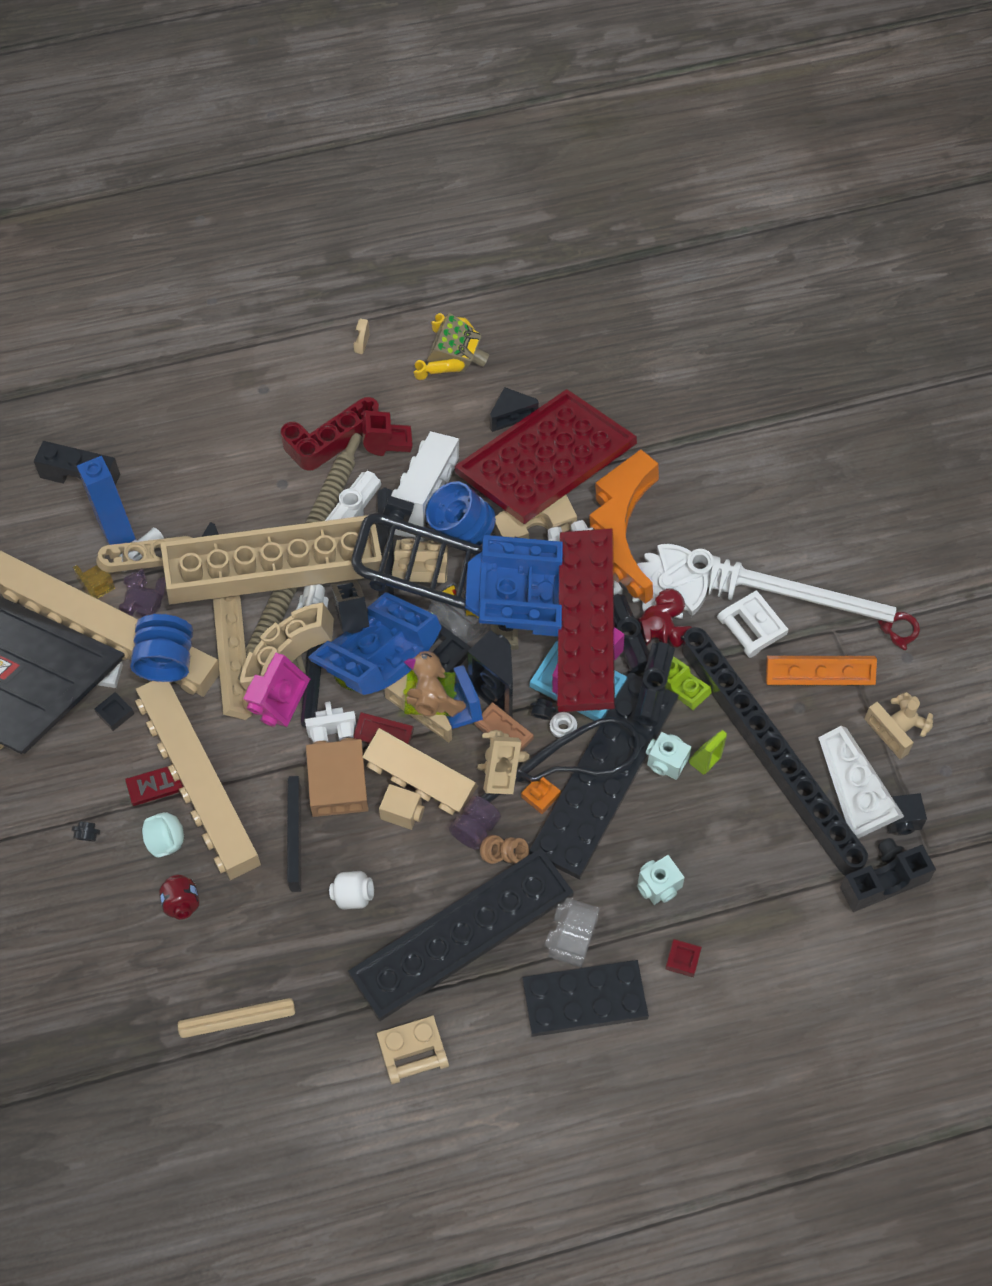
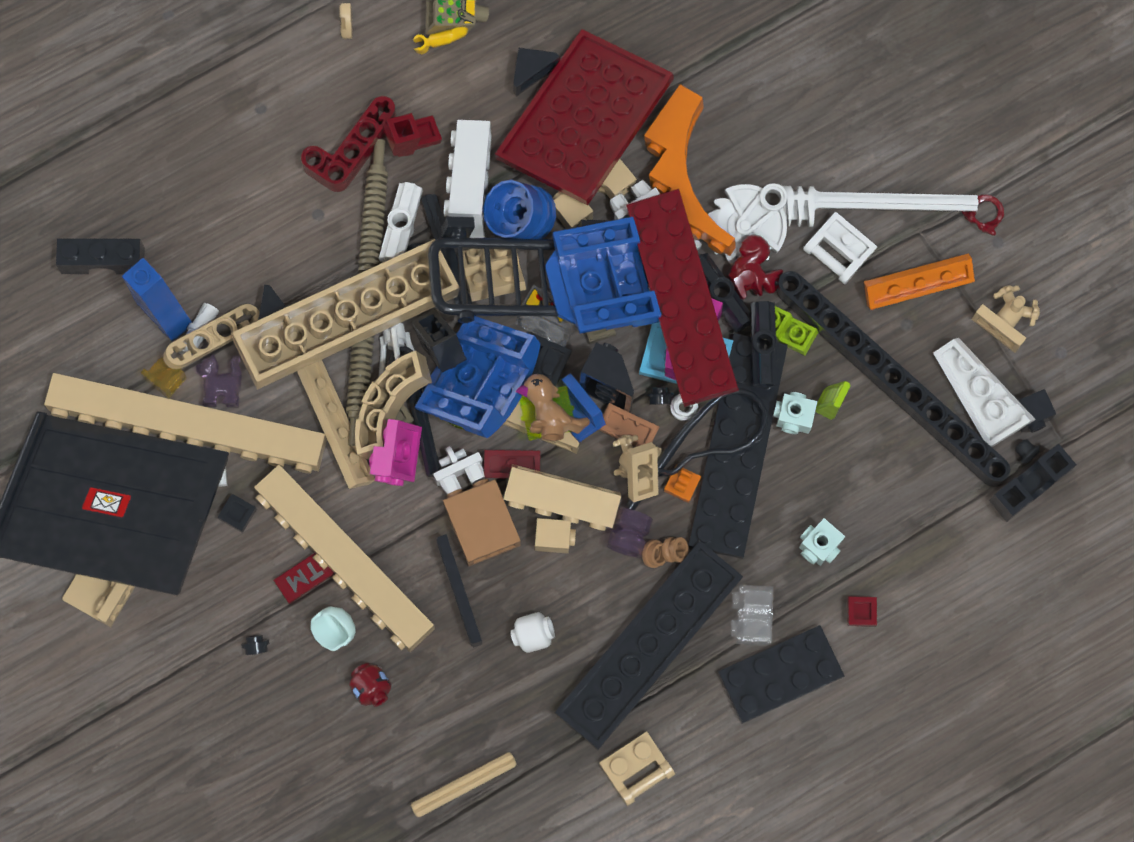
camera: 20 degrees left, 15 degrees up
(162, 648) = (271, 443): blue wheel -> none

